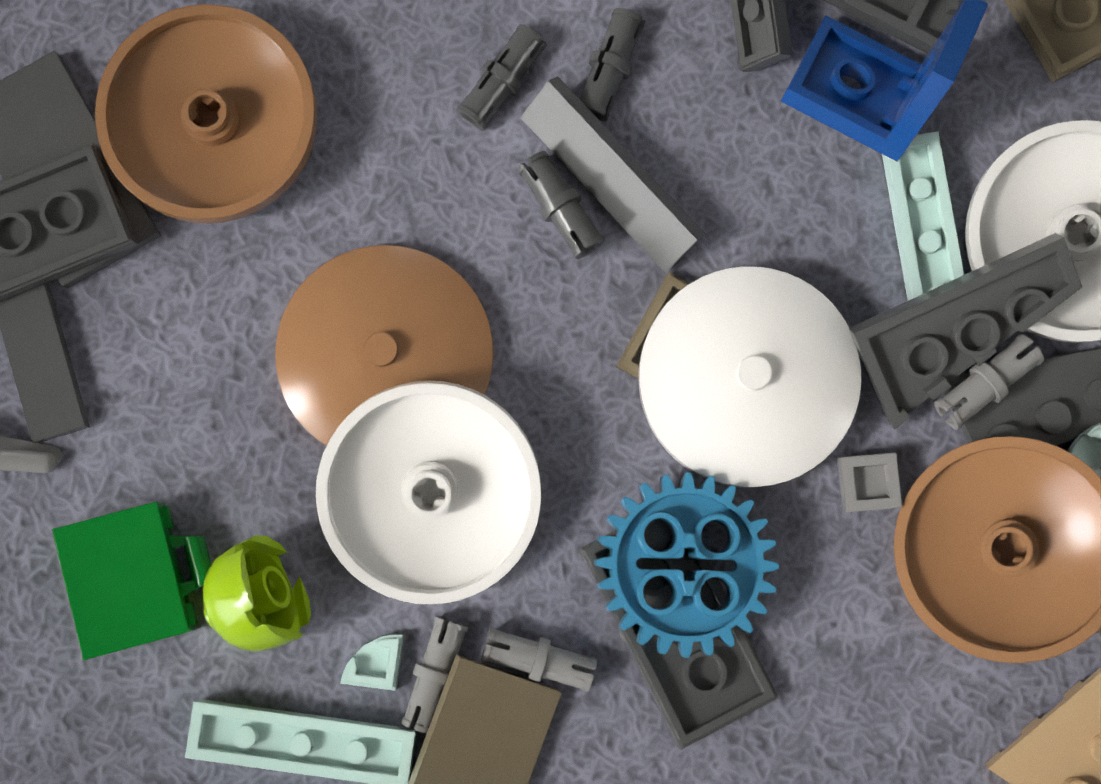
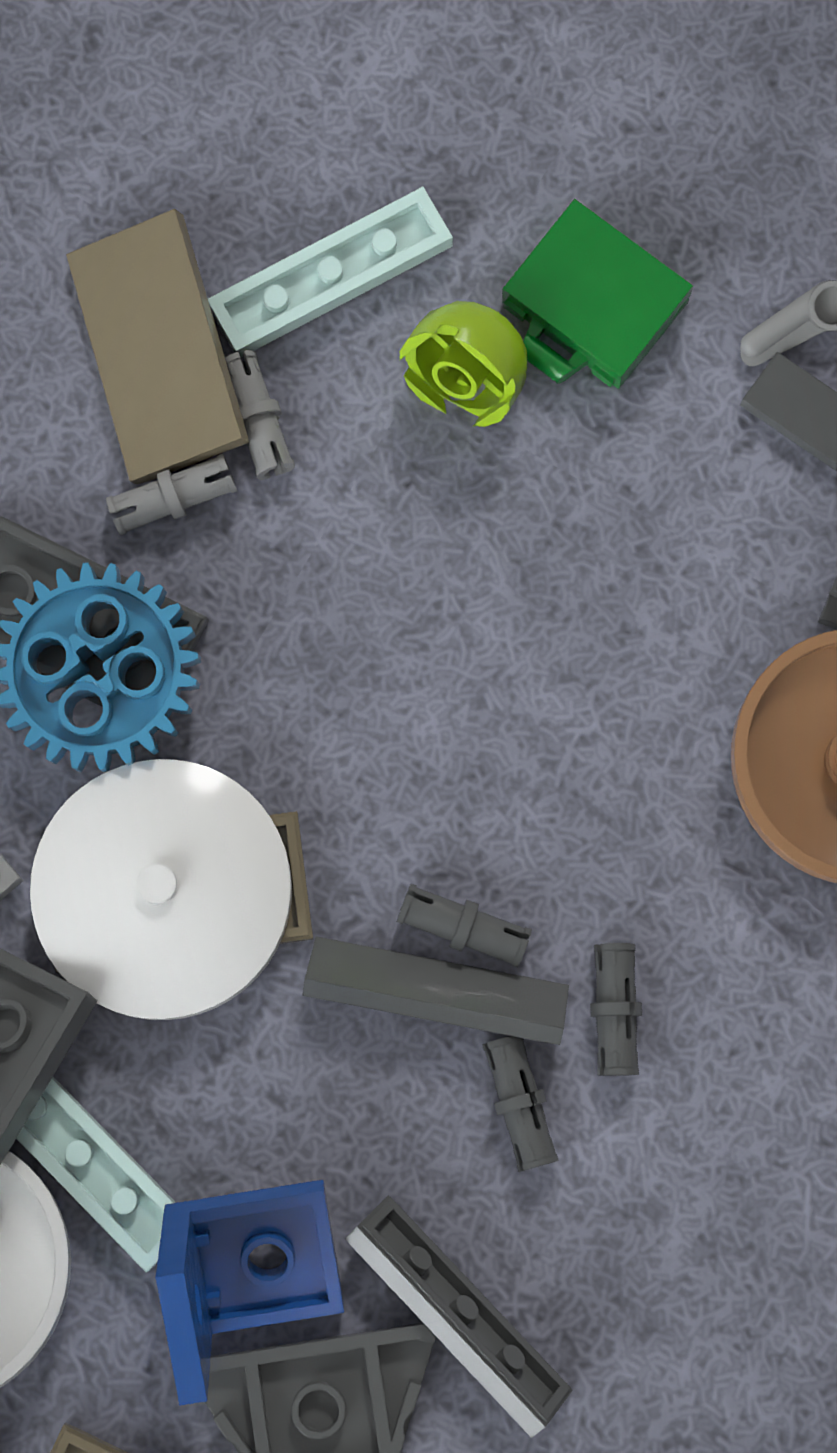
camera: 140 degrees right, 5 degrees down
(376, 324) = (523, 665): medium nougat dish -> none
(376, 664) = (317, 387): light aqua tile -> none
(428, 492) = (381, 563): white dish -> none

